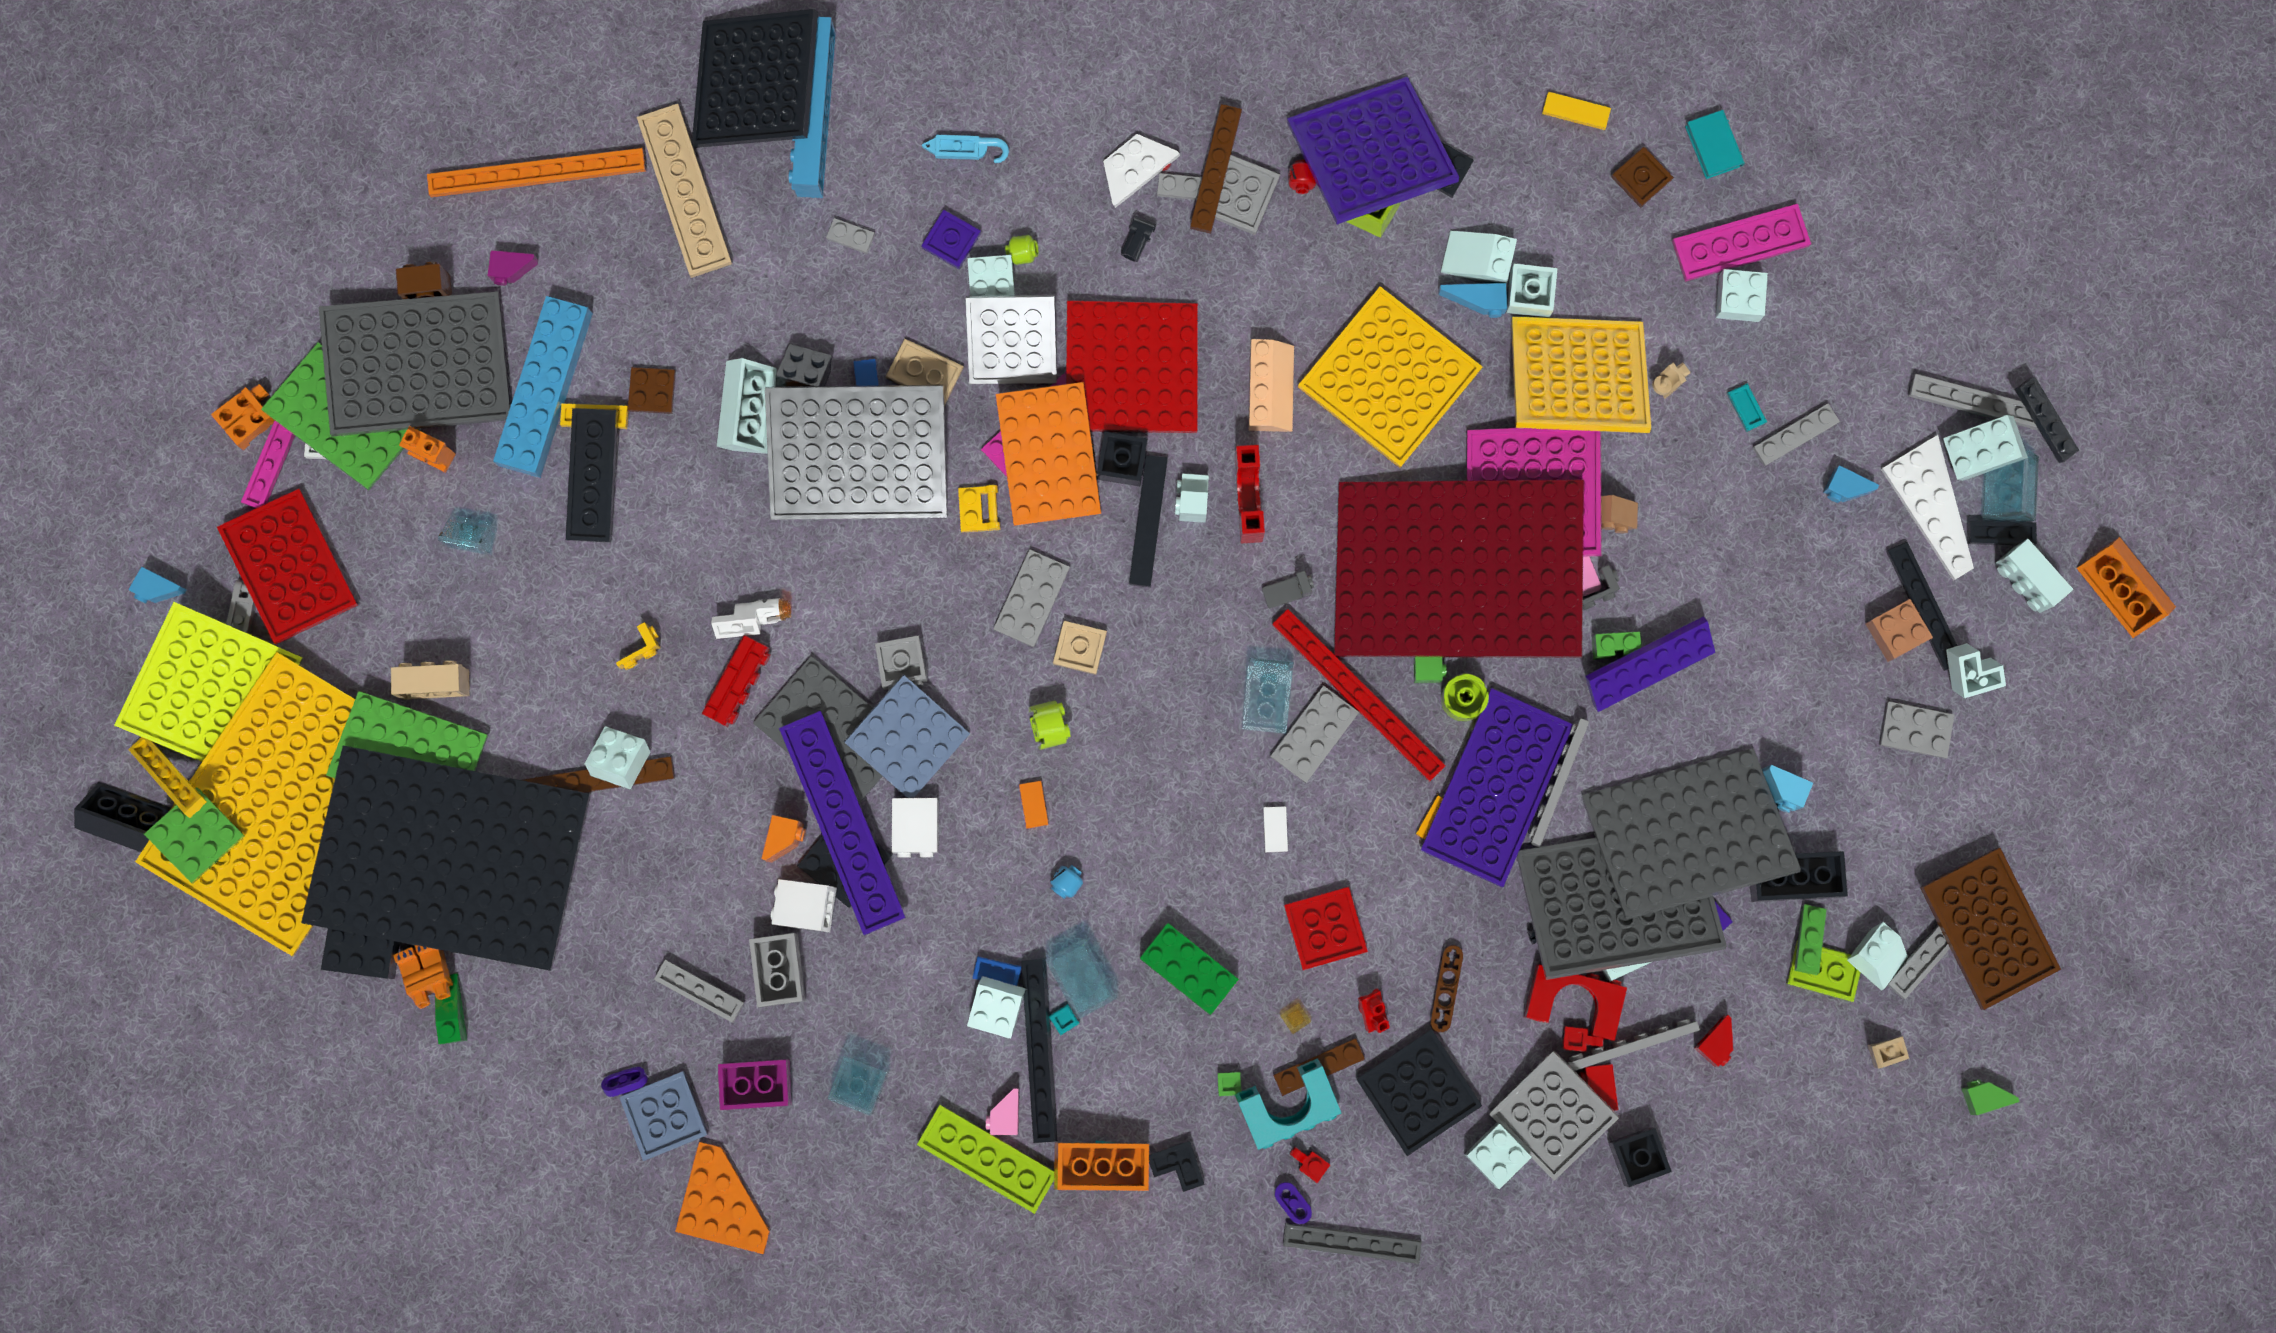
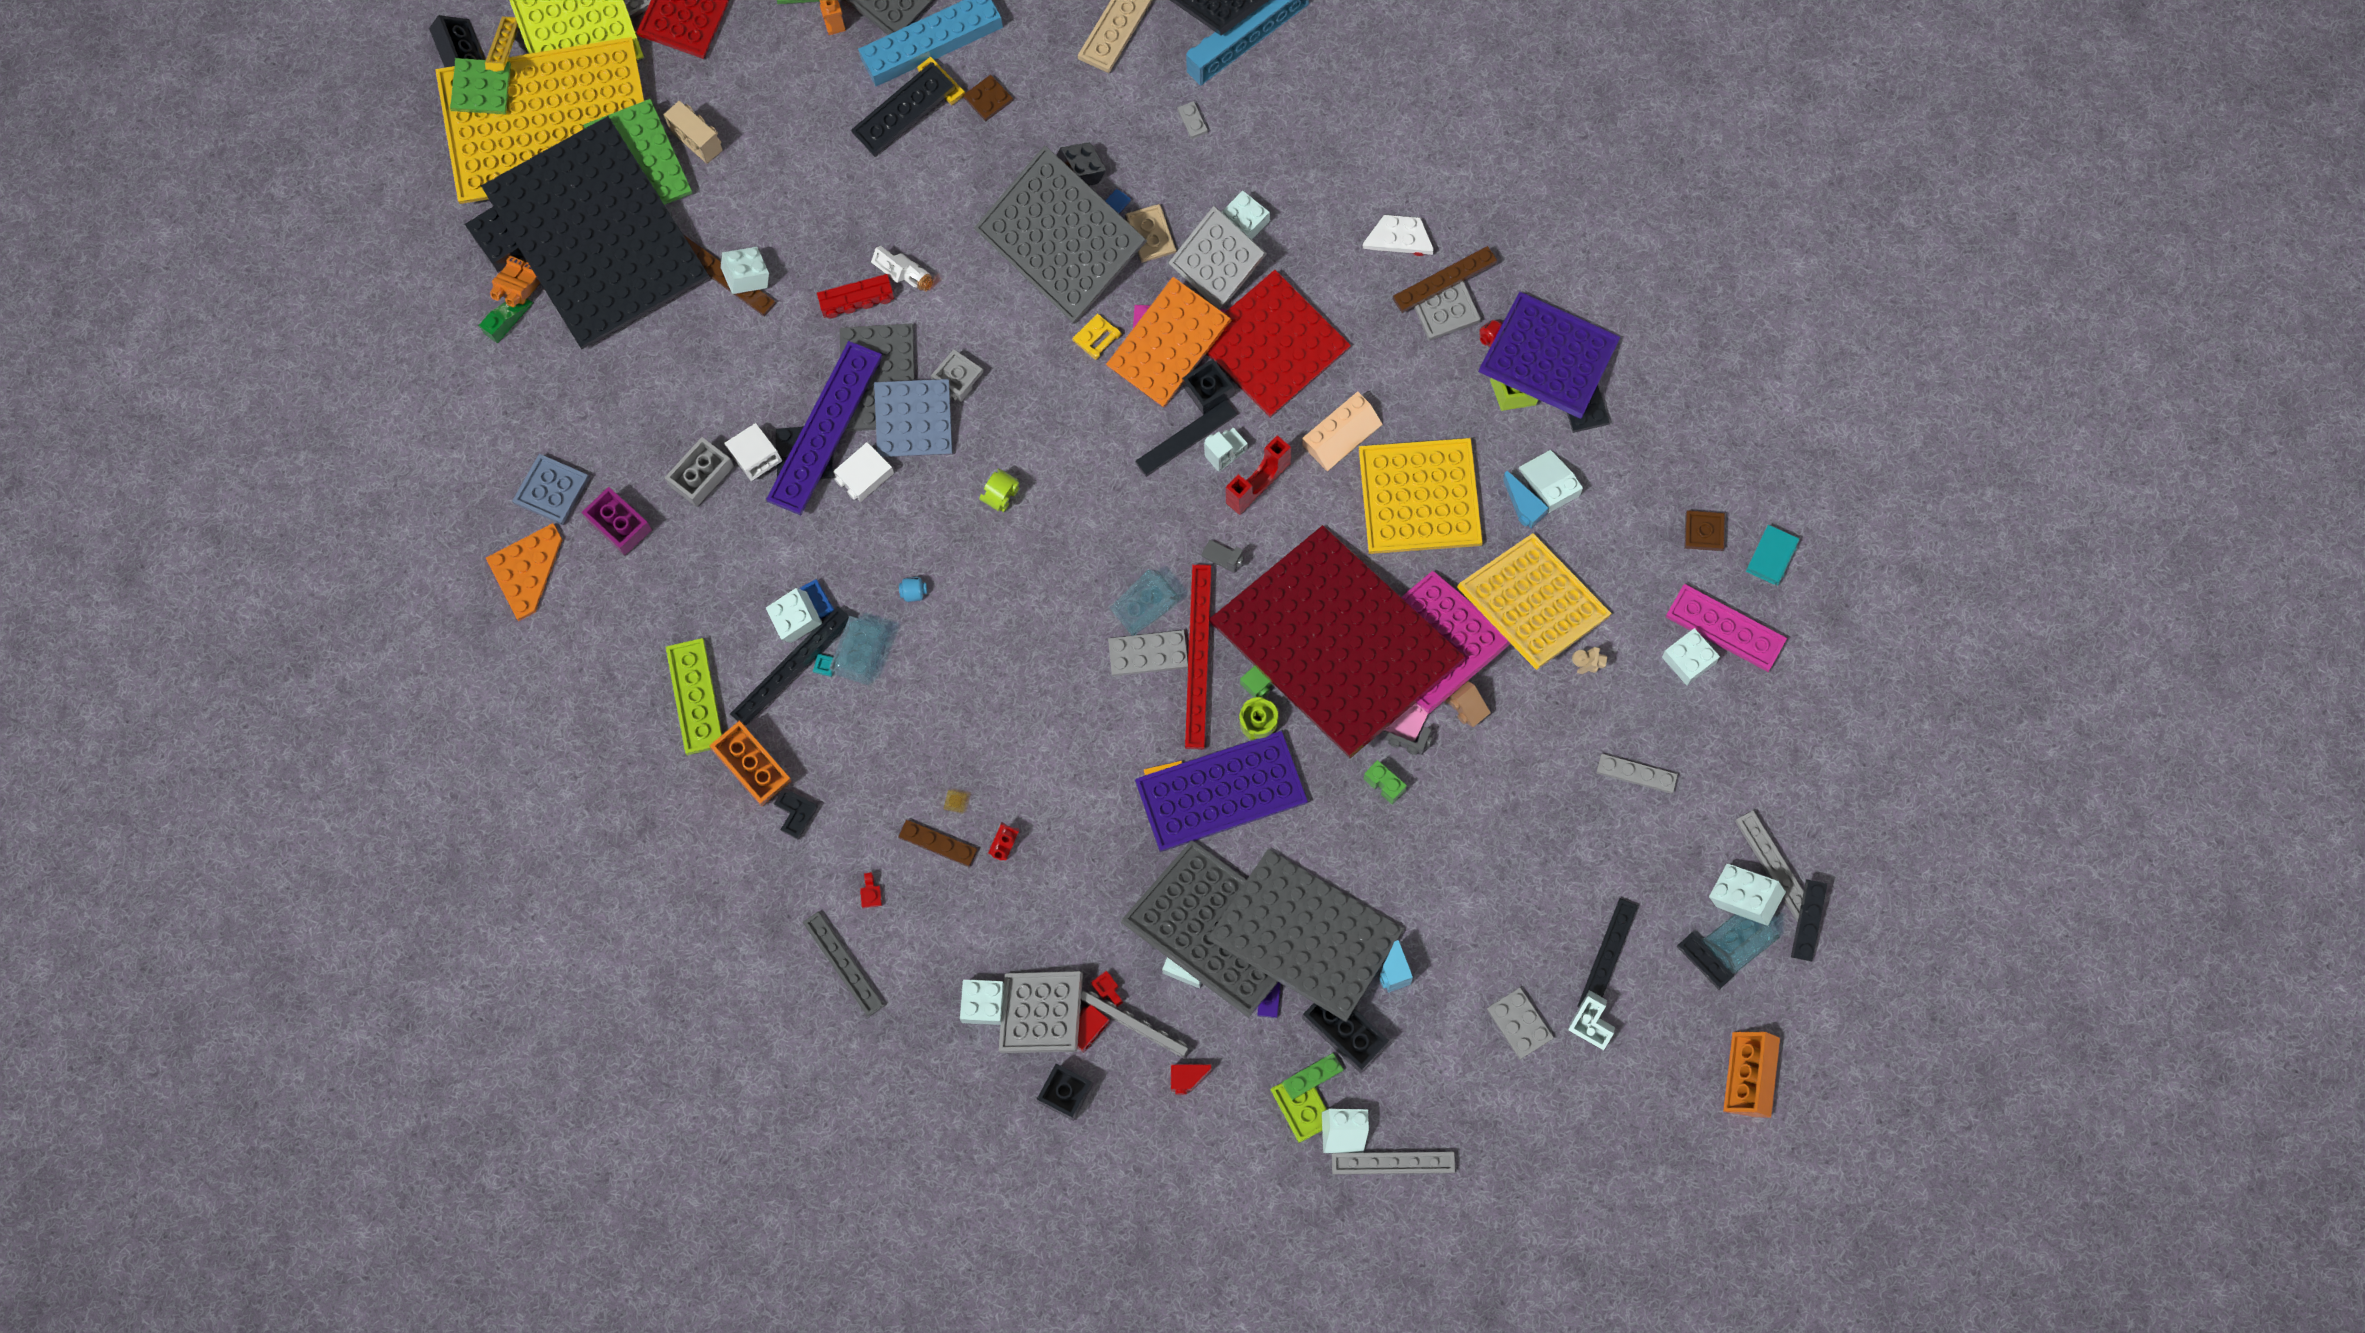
camera: 50 degrees right, 10 degrees down
(468, 536) = (801, 77): clear light blue slope -> none
(624, 1081) = (551, 448): dark purple plate -> none
(649, 635) = (836, 225): yellow bracket -> none
(699, 991) = (646, 442): light grey plate -> none
(743, 406) = (1017, 155): light aqua slope -> none
(782, 837) = (782, 402): orange slope -> none
(858, 1085) = (670, 579): clear light blue brick -> none
(951, 239) = (1247, 174): dark purple plate -> none
(964, 147) = (1311, 132): medium azure plate -> none
(1005, 1116) = (732, 681): bright pink slope -> none
(1022, 249) = (1281, 218): lime head -> none
(1031, 598) = (1071, 415): light grey plate -> none
(1033, 804) = (943, 529): orange tile -> none
(1079, 647) = (1067, 468): tan plate -> none
(1138, 237) = (1360, 274): black piece -> none
(1178, 186) = (1411, 269): light grey plate -> none
(1189, 969) = (925, 708): green brick -> none
(1229, 1083) = (875, 798): bright green plate -> none
(1275, 829) = (1064, 683): white tile -> none
(1292, 1203) = (835, 904): dark purple plate -> none
(1318, 1107) = (867, 844): teal arch -> none
(1325, 928) = (1029, 768): red plate -> none
(1419, 1092) = (978, 918): black plate -> none
(1450, 989) = (1060, 874): reddish brown beam -> none
(1531, 290) = (1560, 527): light aqua brick -> none
(1554, 791) = (1255, 829): light grey plate -> none
(1576, 110) = (1705, 455): yellow tile -> none
(1607, 998) = (1150, 980): red arch -> none
(1650, 664) = (1393, 812): dark purple plate -> none
(1746, 407) = (1622, 727): teal tile -> none
(1847, 485) = (1635, 834): dark azure slope -> none
(1888, 1052) = (1286, 1193): tan slope -> none
(1899, 630) = (1572, 950): nougat brick -> none
(1927, 493) = (1682, 890): white wing -> none
(1986, 1097) = (1317, 1286): bright green slope -> none
(1990, 928) = (1433, 1187): reddish brown plate -> none
(2033, 576) = (1694, 1003): light aqua brick -> none

